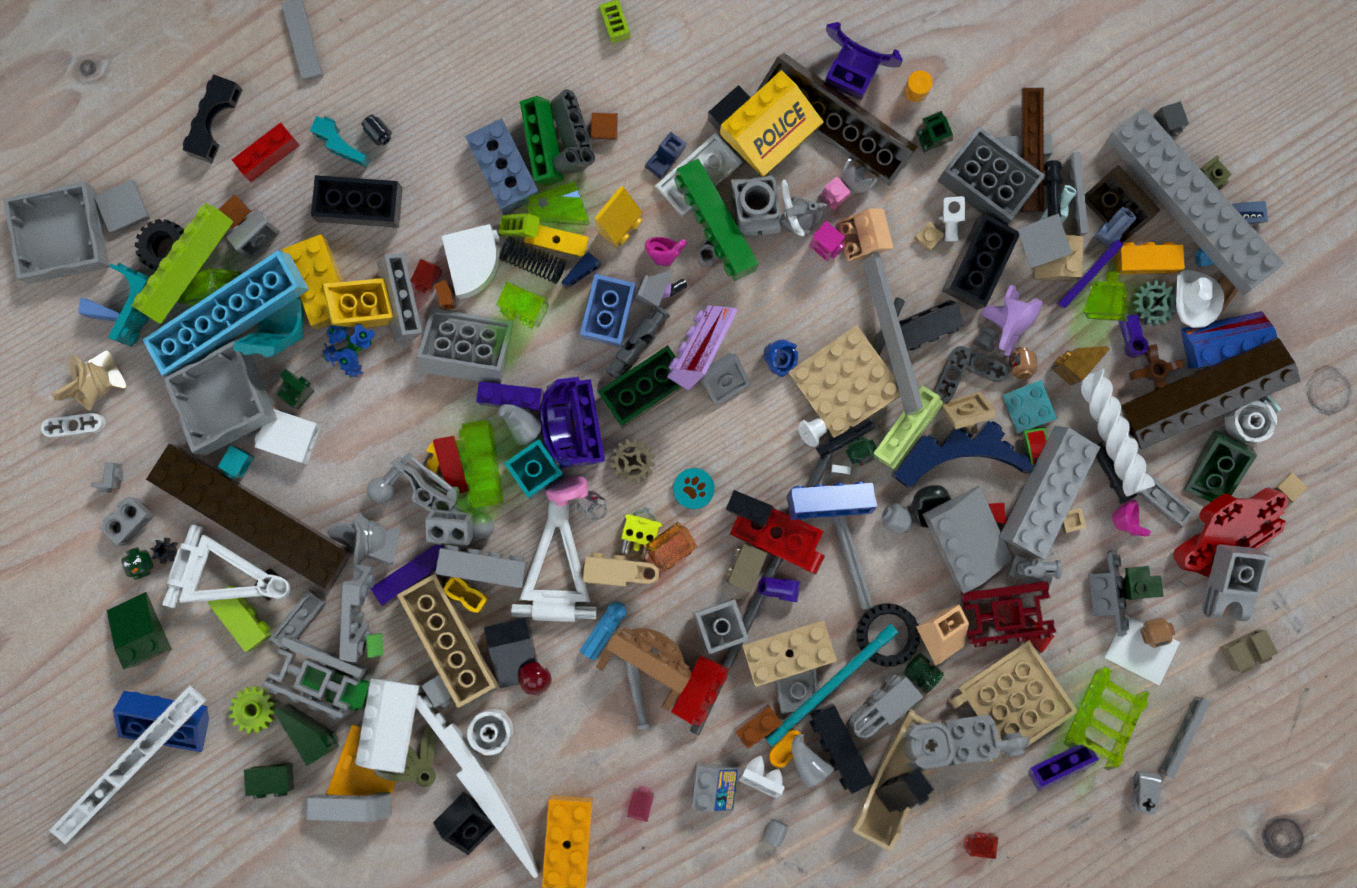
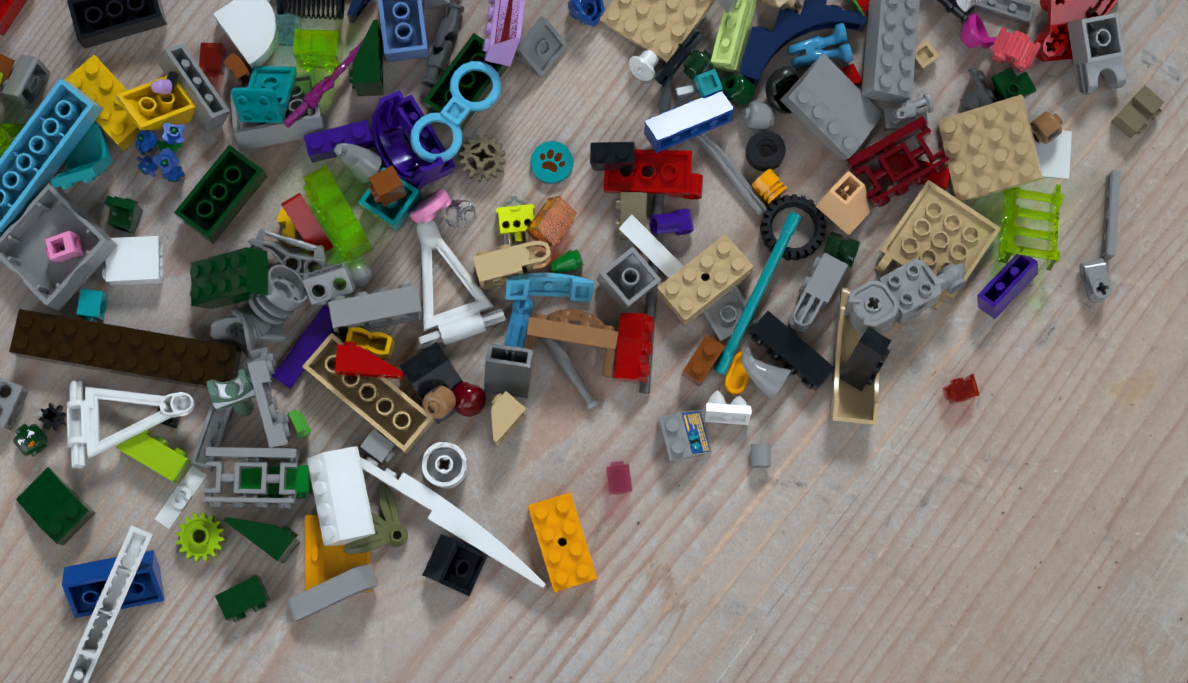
camera: 25 degrees left, 5 degrees down
(228, 403) = (69, 241): none -> bright pink brick
(250, 664) = (180, 497): none -> white piece
(323, 596) = (233, 393): none -> sand green connector
(361, 491) = (229, 278): none -> dark green brick
(372, 290) = (166, 85): none -> lavender arm
(385, 406) = (220, 194): none -> dark green brick
(399, 521) = (284, 295): none -> light grey wheel
(448, 613) = (357, 361): none -> red slope
(459, 331) = (266, 94): none -> teal bracket
(503, 347) = (314, 96): none -> magenta sword
(504, 273) = (286, 25): none -> clear light blue bracket
(506, 675) = (439, 402): none -> medium nougat head
(532, 463) = (386, 186): none -> dark orange brick
(560, 709) = (506, 416): none -> tan slope
(562, 338) = (368, 64): none -> dark green slope
(578, 670) = (508, 370): none -> dark grey brick
(623, 413) = (456, 111): none -> medium azure bar
(647, 602) = (549, 284): none -> medium azure slope
(672, 587) = (567, 262): none -> green cone
(752, 605) = (650, 246): none -> white sticker
(863, 472) = (707, 83): none -> teal tile
(881, 589) = (769, 186): none -> light orange piece
(888, 488) = (738, 89): none -> dark green head
(903, 553) = (769, 139): none -> black tyre
(973, 476) = (814, 46): none -> dark azure piece
(1098, 635) = (990, 149): none -> tan plate
(1159, 550) = (1014, 49): none -> coral brick

